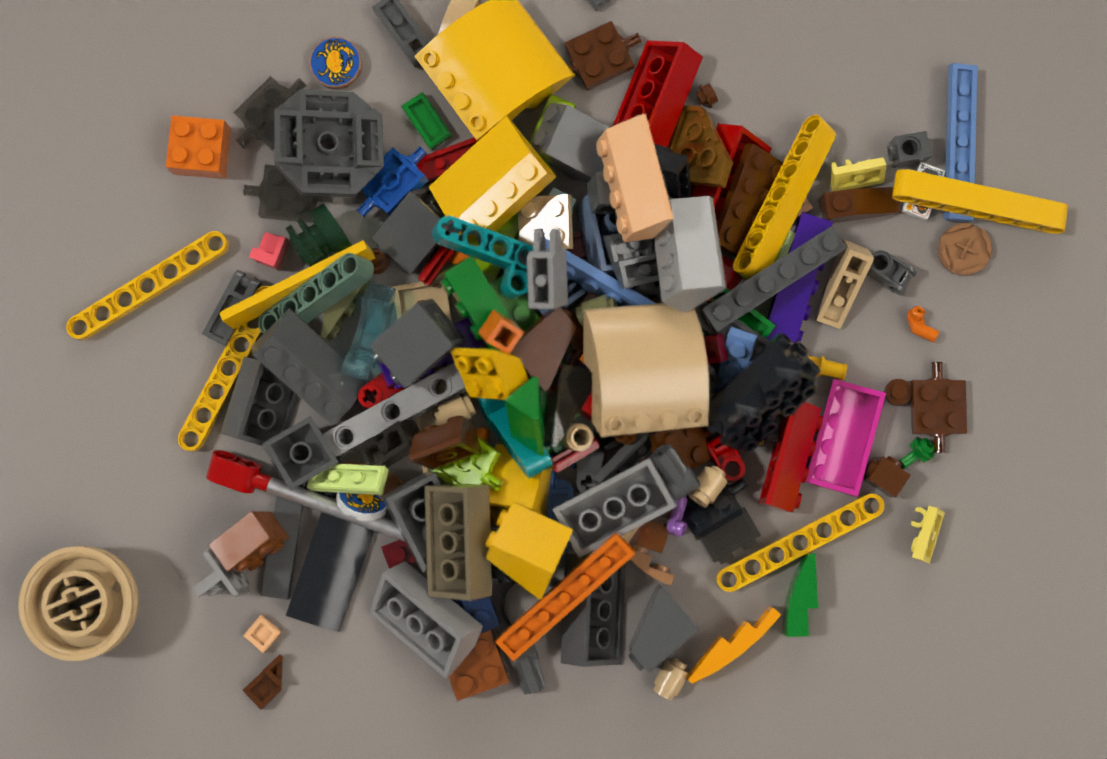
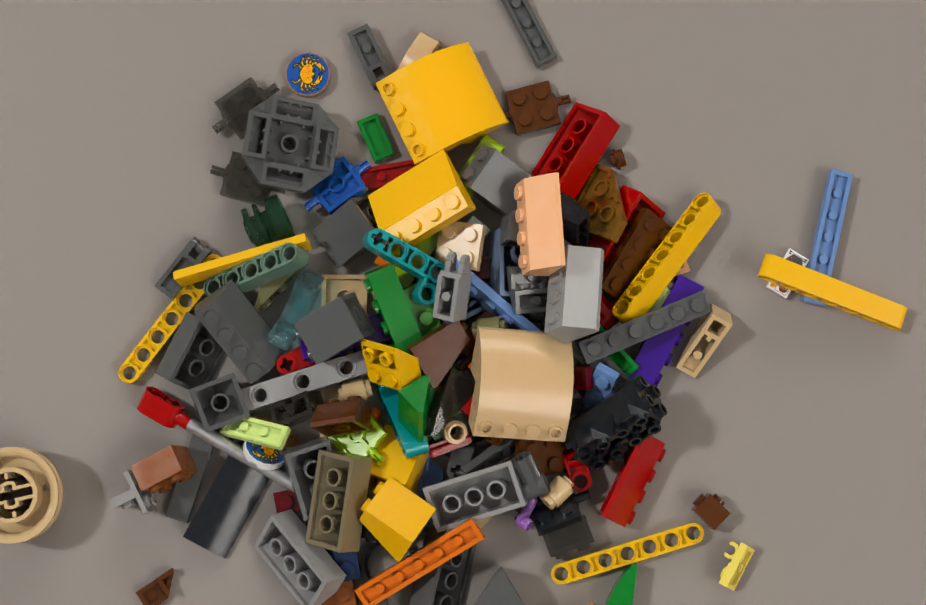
camera: 10 degrees right, 0 degrees up
(134, 286) = (104, 236): yellow beam -> none
(198, 147) = (179, 126): orange brick -> none
(262, 633) = (160, 548): light nougat tile -> none
(271, 251) = (225, 225): coral panel -> none
(380, 262) = (316, 252): reddish brown plate -> none
(436, 265) = (361, 264): red axle -> none
(501, 332) = (405, 333): orange brick -> none
(642, 560) = (491, 544): medium nougat slope -> none
(653, 536) = (503, 525): clear orange plate -> none
(830, 368) = (677, 409): yellow axle -> none
(845, 437) = (681, 471): dark pink slope -> none
(857, 175) = (733, 249): light yellow plate -> none
(858, 204) = (729, 275): reddish brown slope -> none
(894, 273) = (747, 338): dark grey piece -> none
(898, 392) = (733, 440): reddish brown plate -> none
(917, 324) = (761, 387): orange arm -> none
(919, 145) = (791, 235): dark grey brick -> none
(921, 449) = (745, 493): green plate -> none
(938, 407) = (765, 459): reddish brown plate -> none
(964, 249) = (813, 329): medium nougat tile -> none

